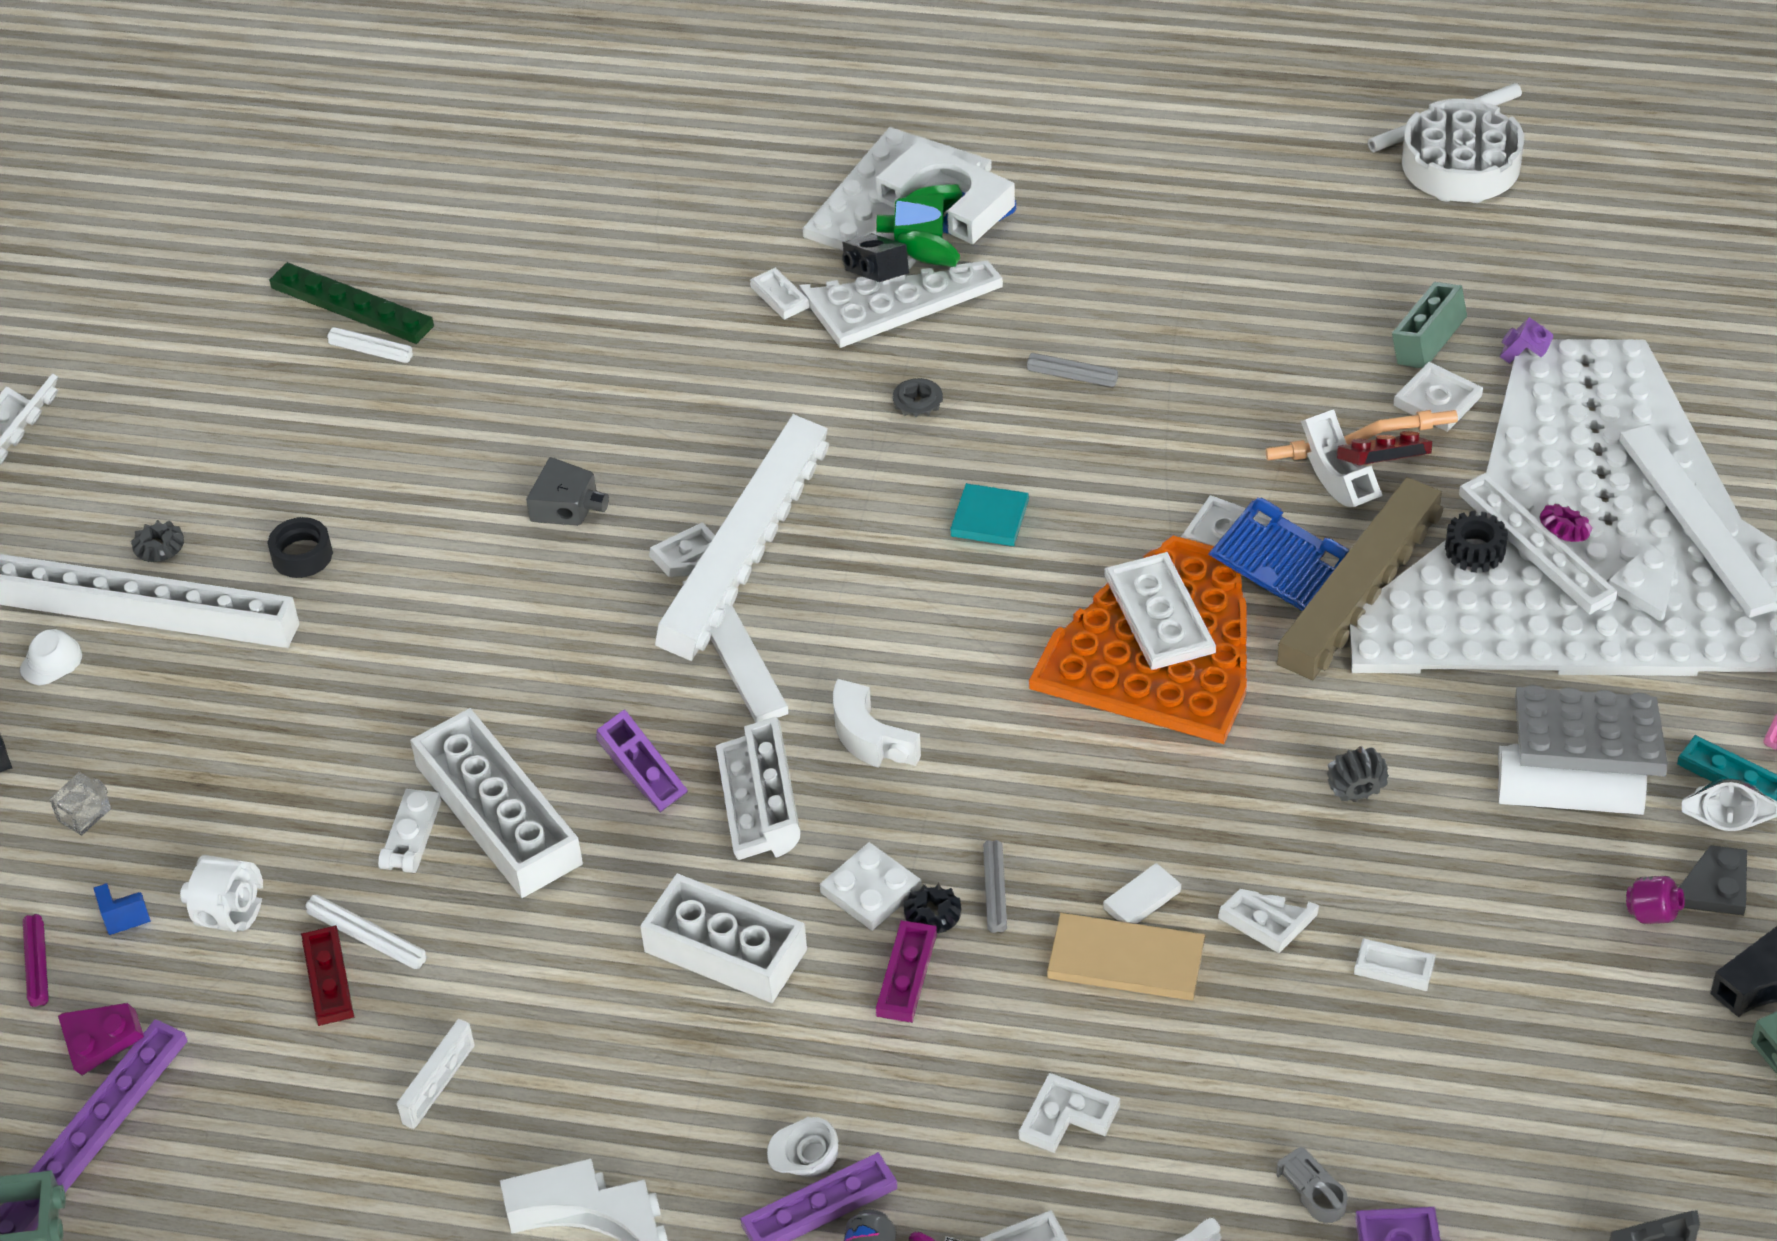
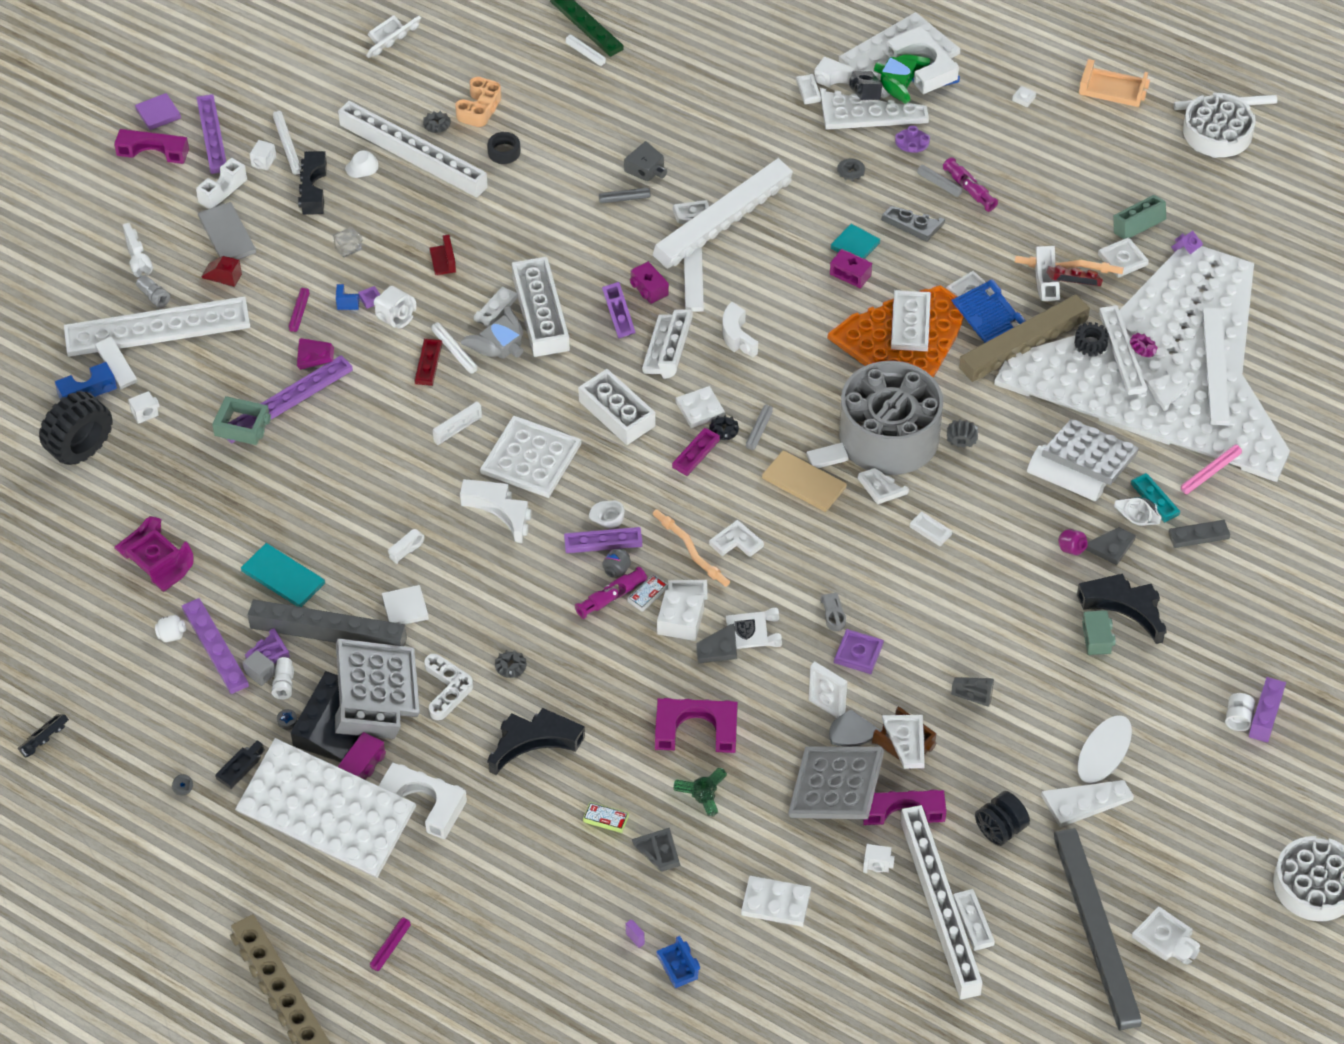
camera: 20 degrees right, 5 degrees up
(163, 890) = (368, 296): none -> medium lavender plate
(233, 472) = (479, 112): none -> light nougat beam
(273, 772) = (443, 257): none -> dark red panel
(444, 886) = (499, 338): none -> light grey torso
(552, 560) = (624, 195): none -> dark grey axle
(604, 1089) = (530, 456): none -> white plate
(671, 694) = (649, 282): none -> magenta brick
(807, 254) = (832, 72): none -> white arch
(993, 320) = (912, 140): none -> medium lavender dish
(1007, 557) = (851, 268): none -> magenta brick
(1054, 1189) = (713, 571): none -> light nougat bar
(1075, 452) = (916, 225): none -> dark grey wing
(1131, 201) = (1024, 96): none -> white plate
(1145, 367) = (976, 191): none -> magenta piece
(1230, 739) = (892, 401): none -> light grey wheel
(1262, 143) = (1113, 85): none -> light nougat panel

